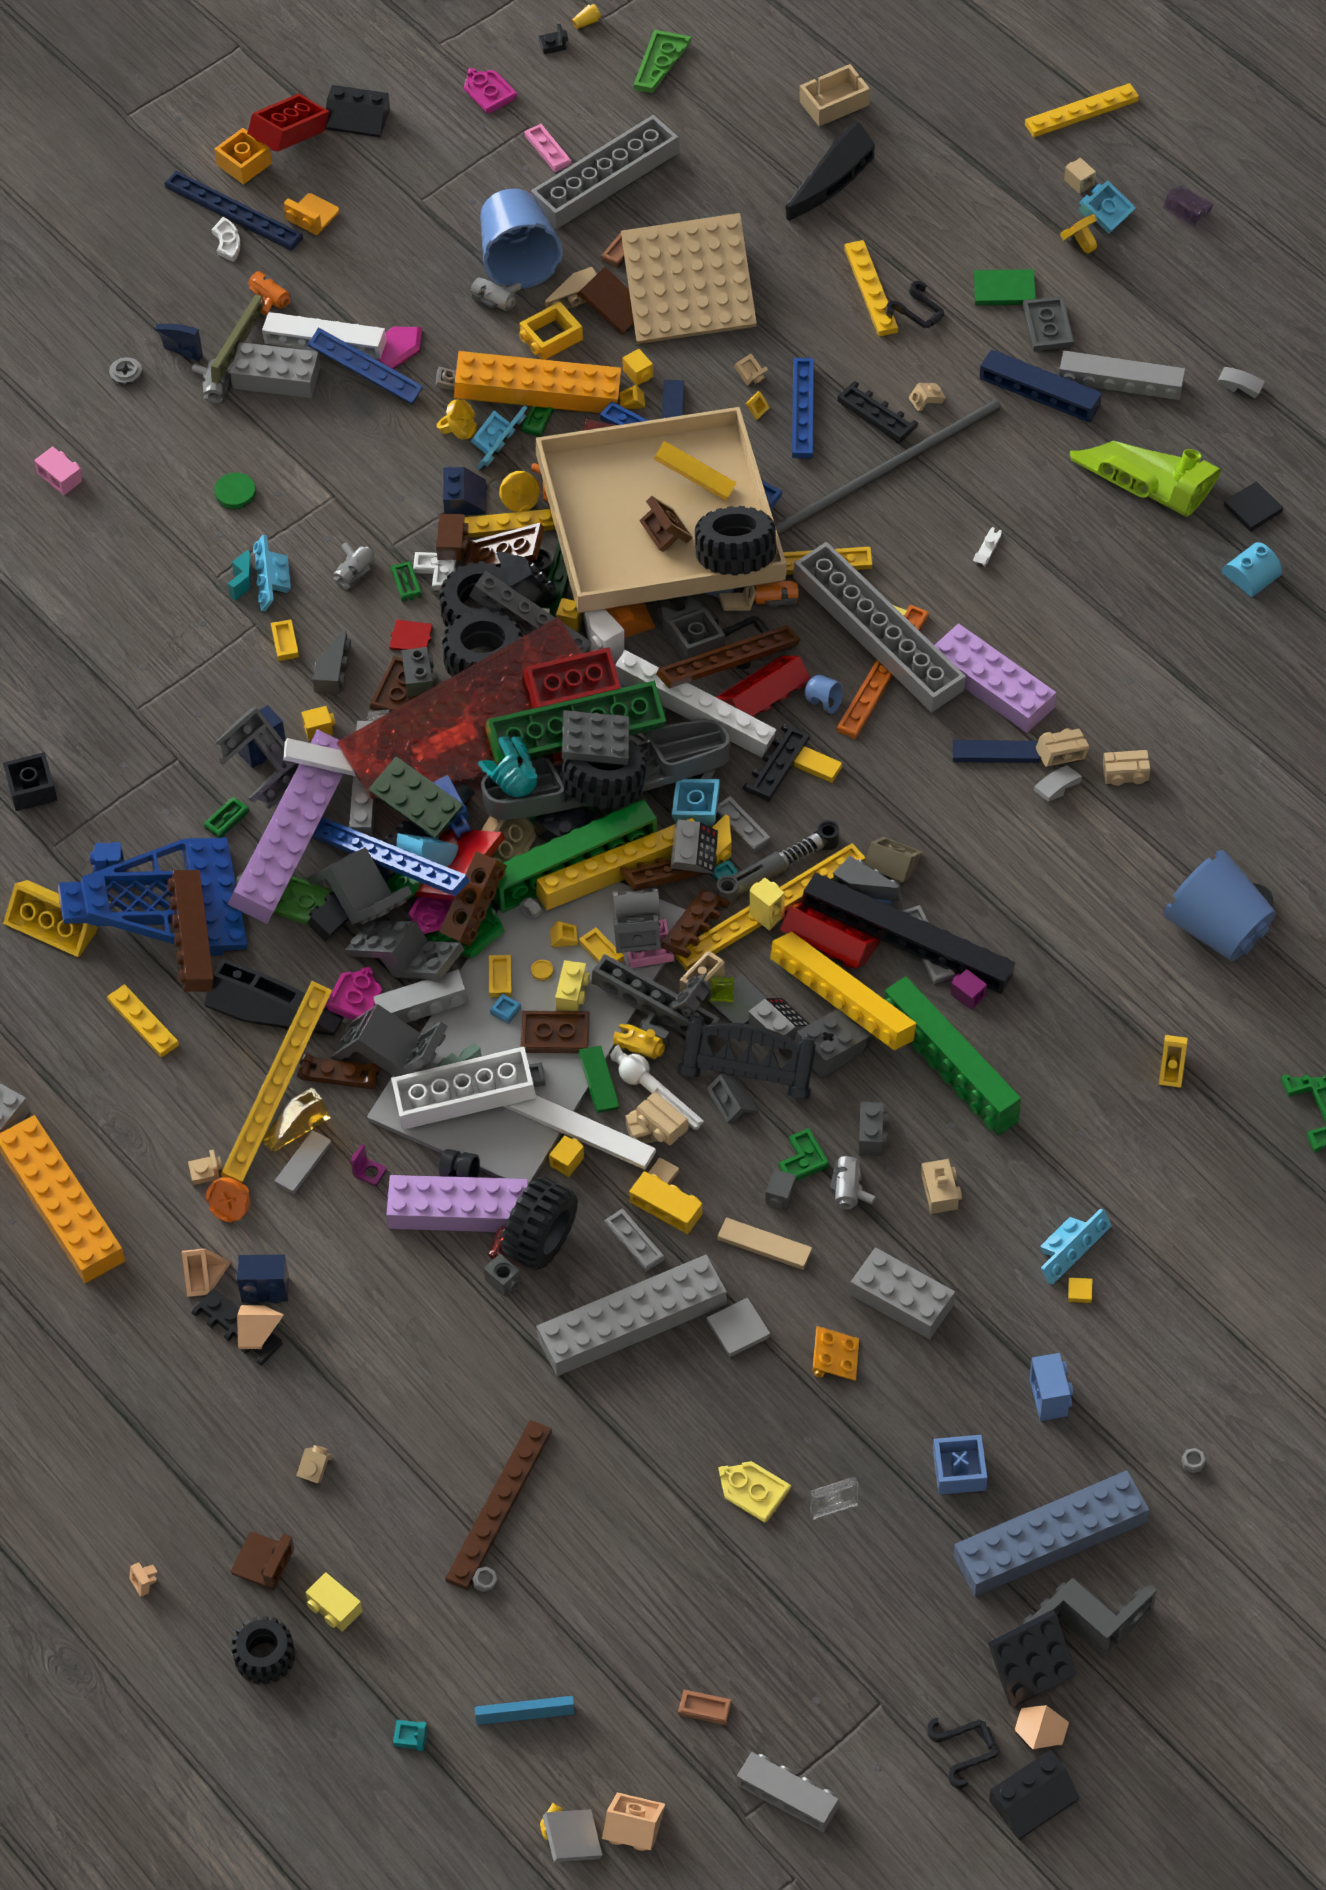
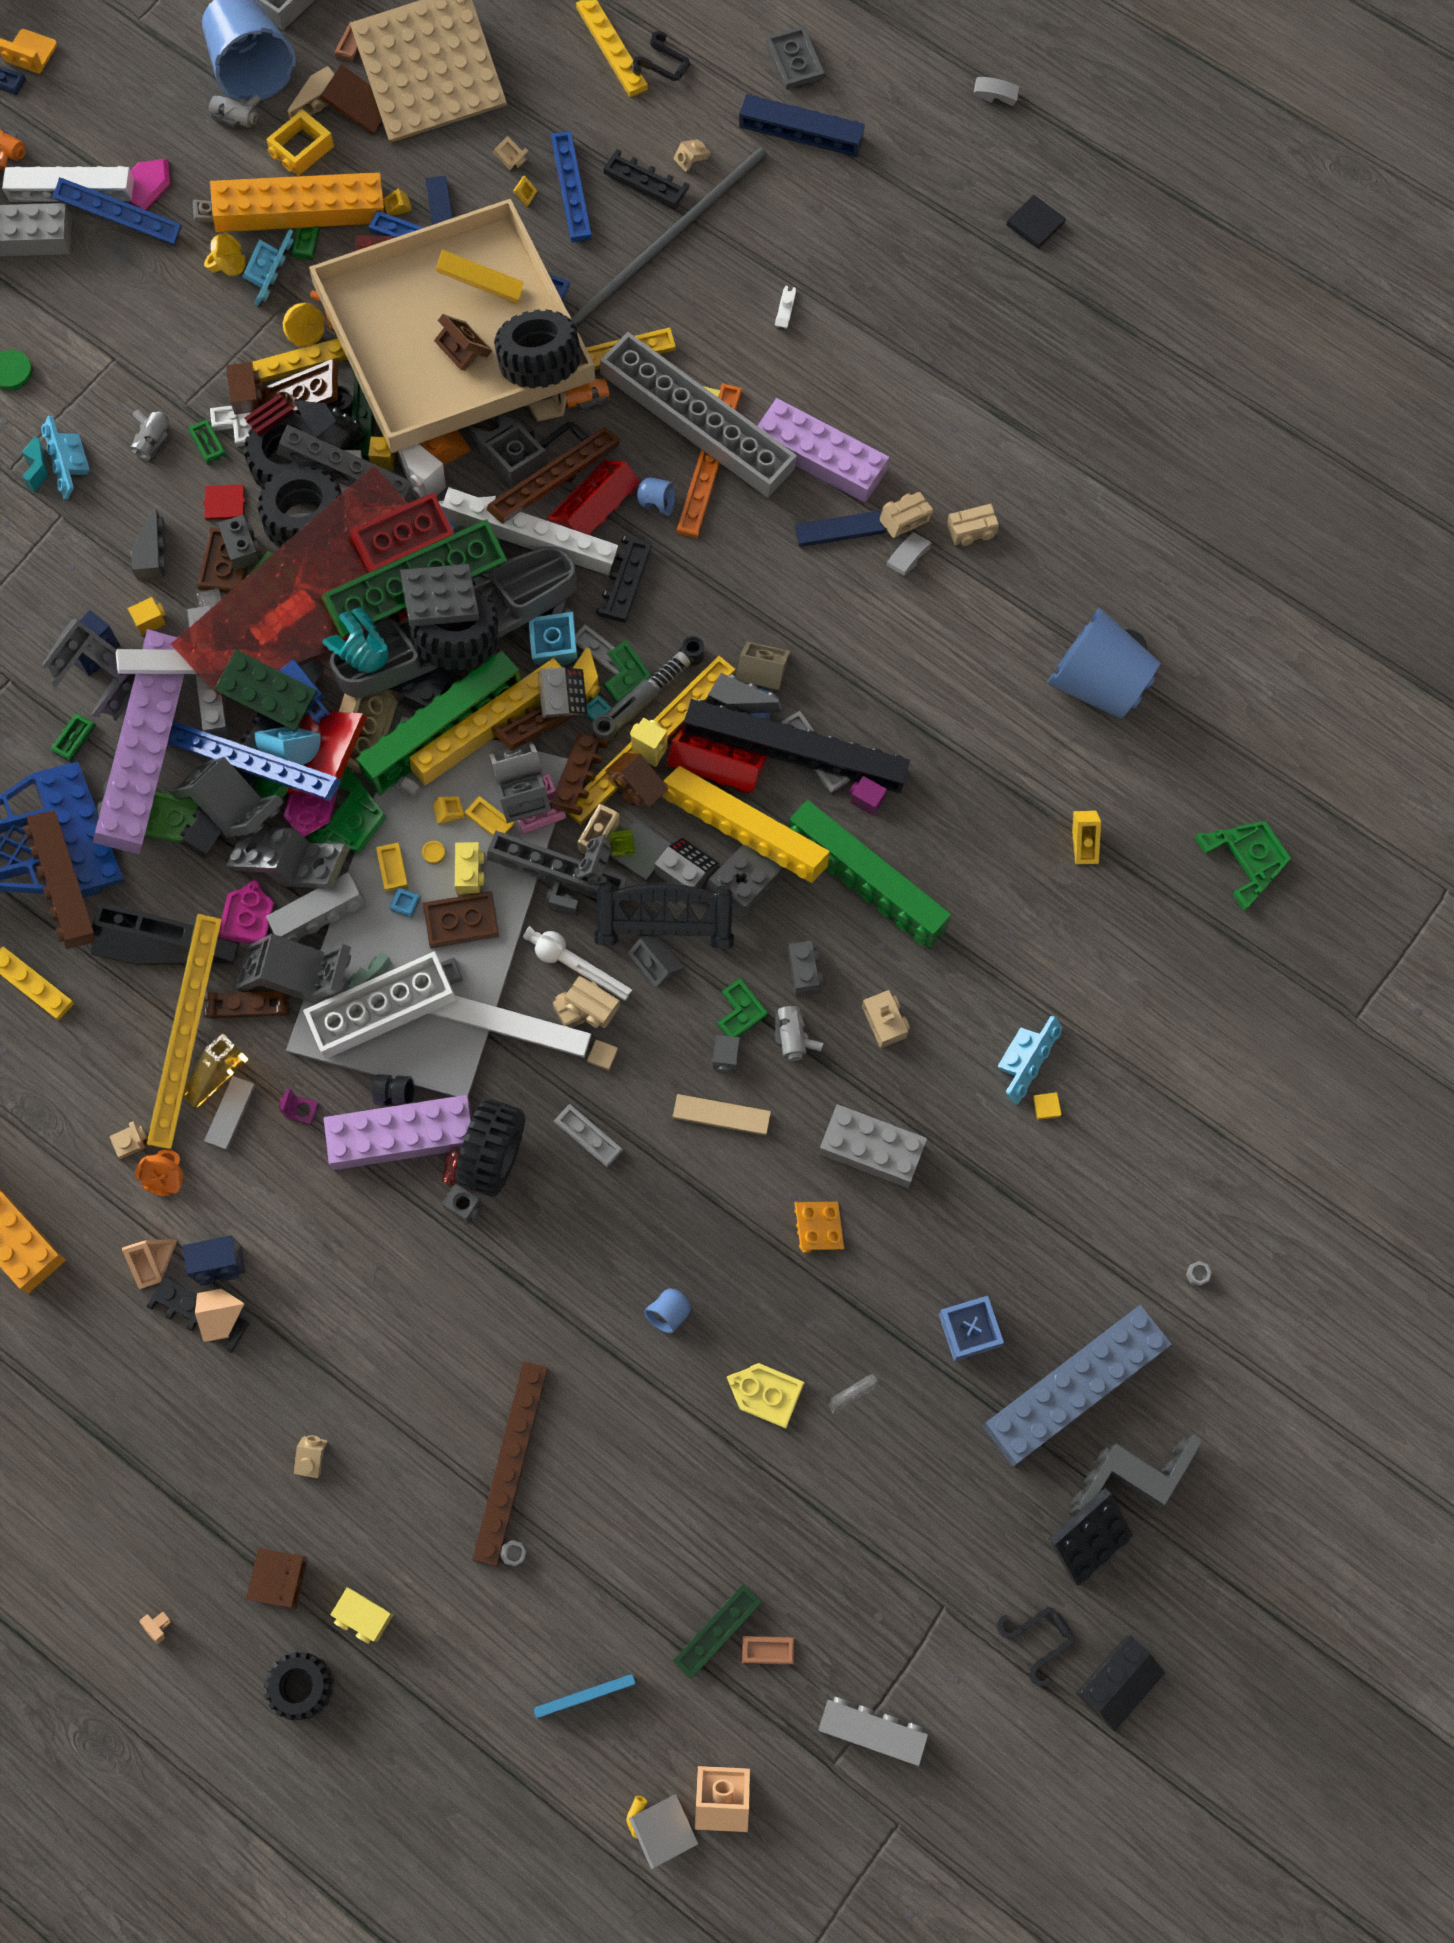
camera: 15 degrees left, 15 degrees up
(284, 640) = (94, 528): yellow tile -> none
(410, 1734) = (472, 1746): teal tile -> none
(463, 492) = (246, 334): dark blue slope -> none
(463, 903) = (333, 822): reddish brown brick -> none
(468, 560) = (267, 412): none -> dark red tile
(566, 1155) = (501, 1056): yellow brick -> none
(598, 1079) = (516, 964): green tile -> none
(631, 1315) = (603, 1224): light grey brick -> none
(637, 367) = (396, 168): yellow brick -> none
(639, 1041) = (549, 915): yellow piece -> none
(660, 1680) = (717, 1631): none -> dark green plate
(666, 1202) = (613, 1089): yellow brick -> none
(682, 1396) = (672, 1307): none -> medium blue helmet
(738, 1327) = (714, 1214): light grey tile -> none
(747, 935) = (636, 780): none -> reddish brown brick
(764, 841) = (631, 671): none -> green tile
(818, 764) = (665, 573): yellow tile -> none
(1003, 286) = (742, 24): green tile -> none
(1041, 1727) = (1110, 1606): light nougat slope -> none
(1050, 1386) = (1044, 1224): medium blue brick -> none
(1123, 375) = (880, 101): light grey brick -> none
(1166, 478) = (929, 203): lime panel -> none
(1253, 569) = (1051, 288): medium azure brick -> none

